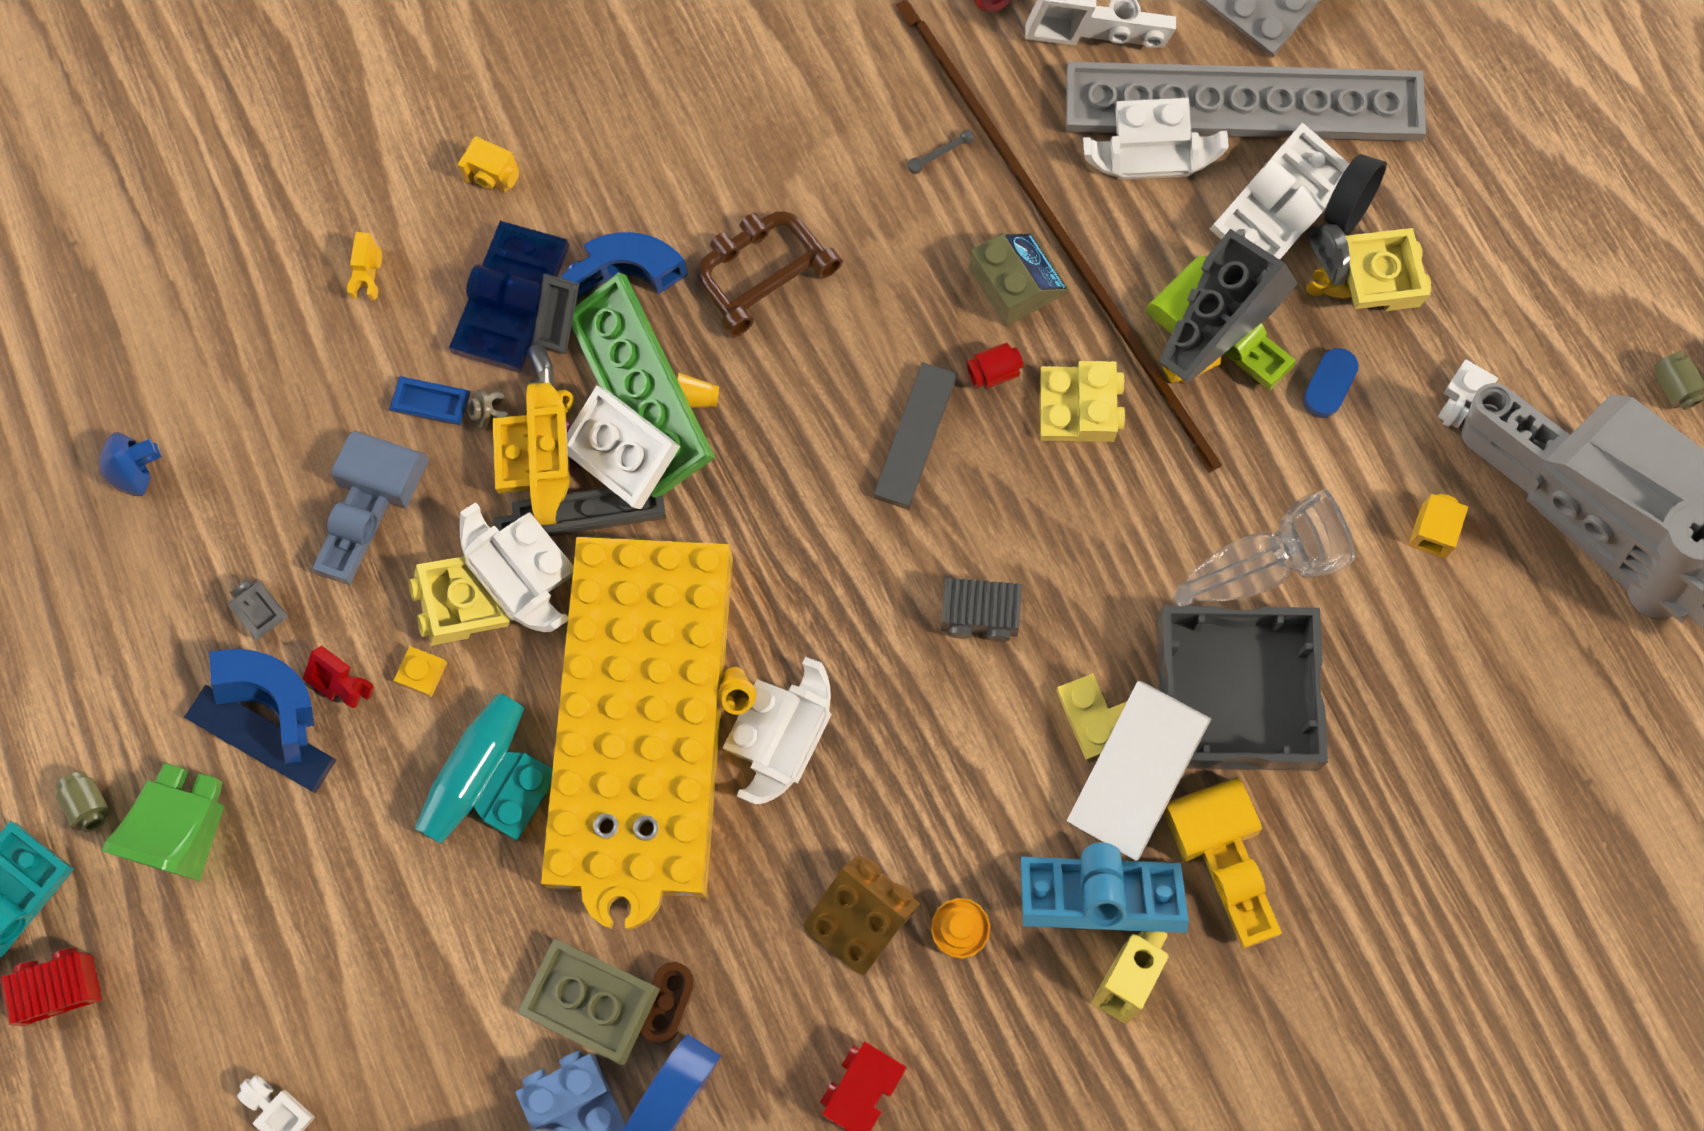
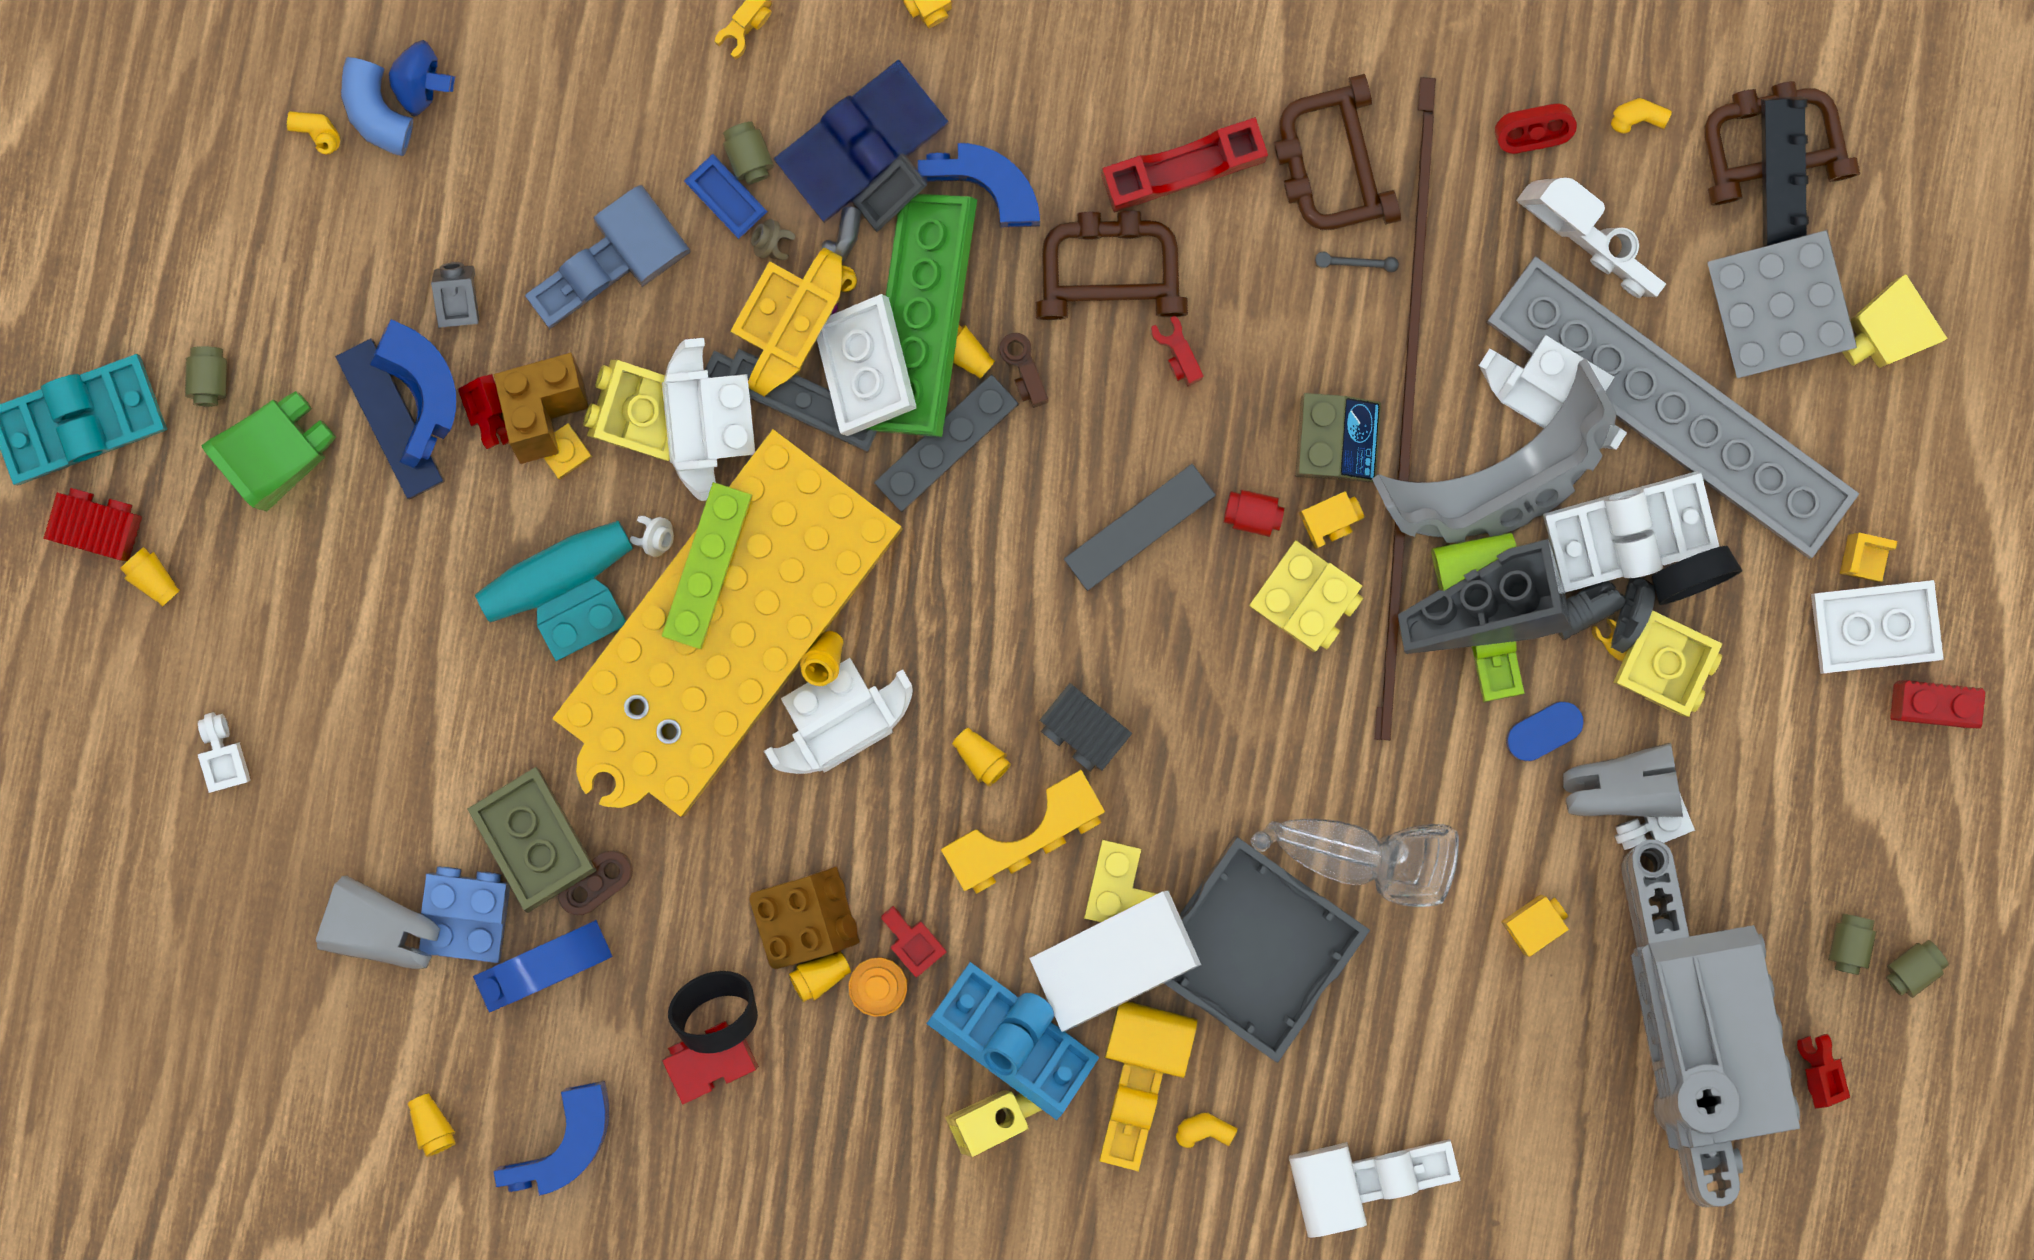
camera: 30 degrees right, 15 degrees up
(67, 552) = (318, 127): none -> yellow arm
(101, 513) = (367, 109): none -> medium blue cylinder
(124, 998) = (150, 576): none -> yellow cone
(369, 638) = (533, 397): none -> pearl gold brick
(426, 357) = (747, 153): none -> olive brick
(538, 686) = (657, 536): none -> white plate
(591, 672) = (707, 565): none -> lime plate
(723, 474) = (936, 455): none -> dark grey plate
(744, 185) = (1185, 166): none -> red arch
(756, 381) = (1029, 384): none -> reddish brown plate
(822, 1025) = (702, 990): none -> black tyre
(861, 125) = (1298, 187): none -> reddish brown bar
(861, 291) = (1183, 361): none -> red plate
(904, 955) = (819, 975): none -> yellow cone
(916, 686) = (981, 757): none -> yellow cone
(968, 873) = (915, 945): none -> red plate
(969, 764) = (977, 857): none -> yellow arch
(1055, 333) = (1331, 518): none -> yellow brick
(1183, 208) = (1517, 487): none -> light grey windscreen
(1300, 263) = (1592, 606): none -> dark grey hinge
(1304, 862) = (1203, 1126): none -> yellow arm
(1426, 373) = (1627, 785): none -> light grey piece
(1447, 837) = (1335, 1187): none -> white plate
(1460, 110) = (1866, 556): none -> yellow panel
(1509, 152) = (1877, 626): none -> white plate
(1598, 173) = (1938, 704): none -> red brick

